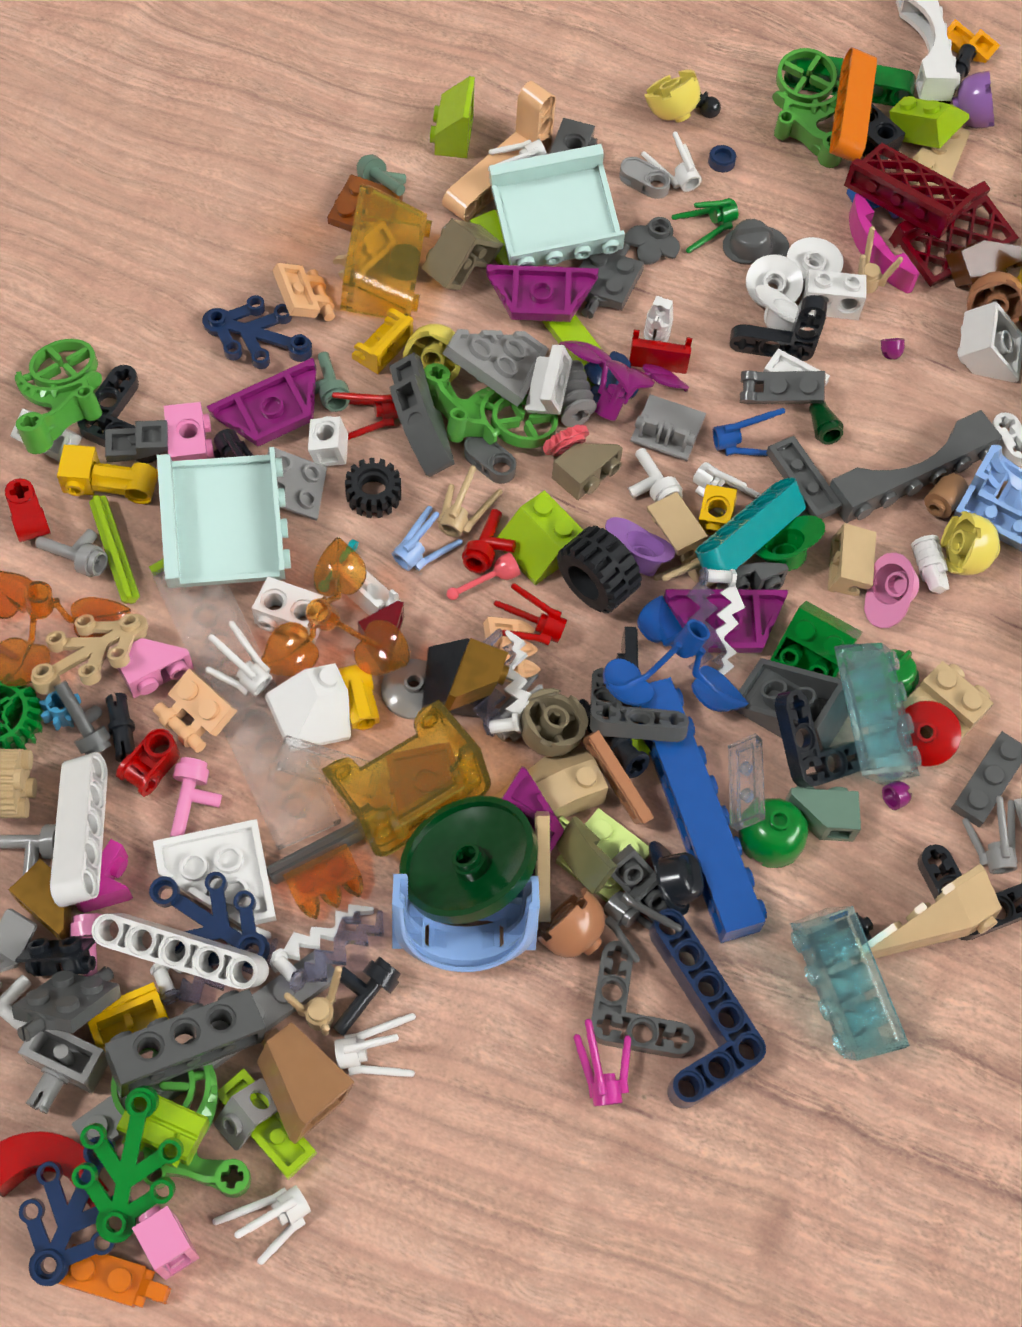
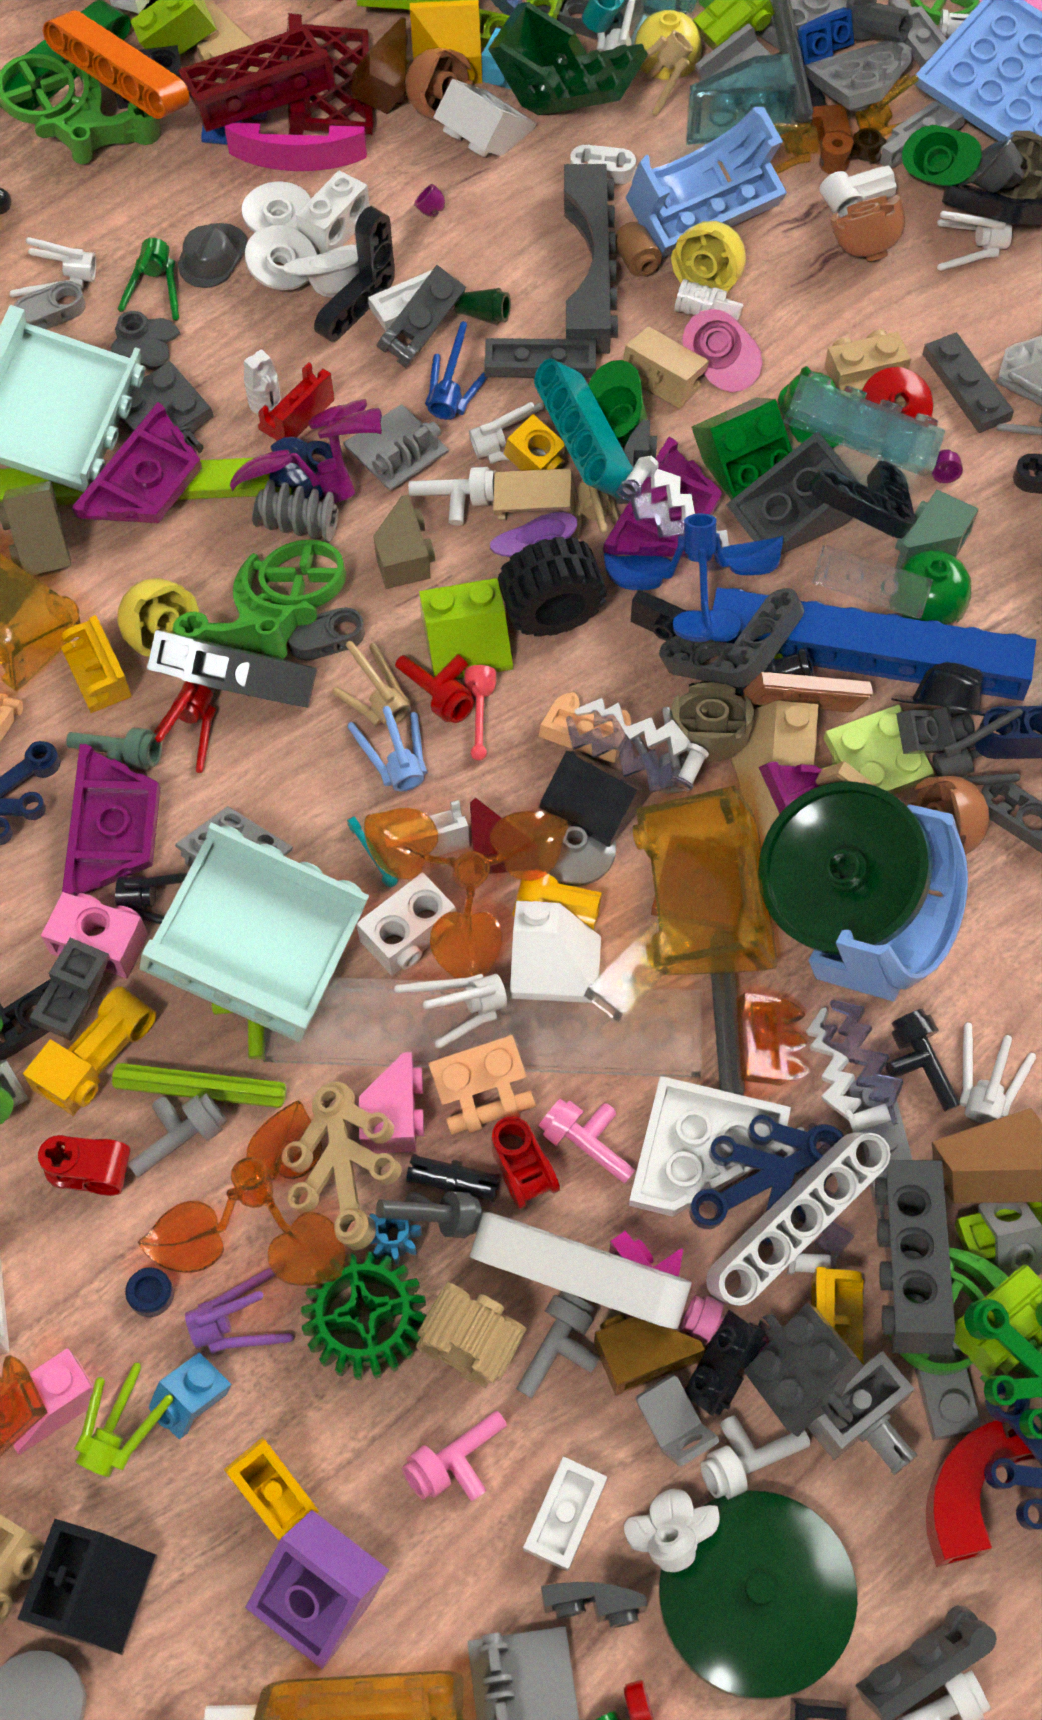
camera: 55 degrees left, 0 degrees up
(319, 1010) = (926, 1111): tan plant -> none
(328, 441) = (213, 794): white brick -> none
(373, 502) = (288, 747): black tyre -> none
(477, 674) = (623, 758): pearl gold slope -> none
(497, 359) = (218, 554): light grey plate -> none
(549, 382) = (281, 521): white panel -> none
(549, 626) = (582, 673): red plant -> none
(565, 439) = (360, 544): coral gear -> none
(584, 857) = (893, 760): olive slope -> none
(722, 158) = (76, 225): dark blue tile -> none
(872, 271) = (328, 166): tan plant -> none

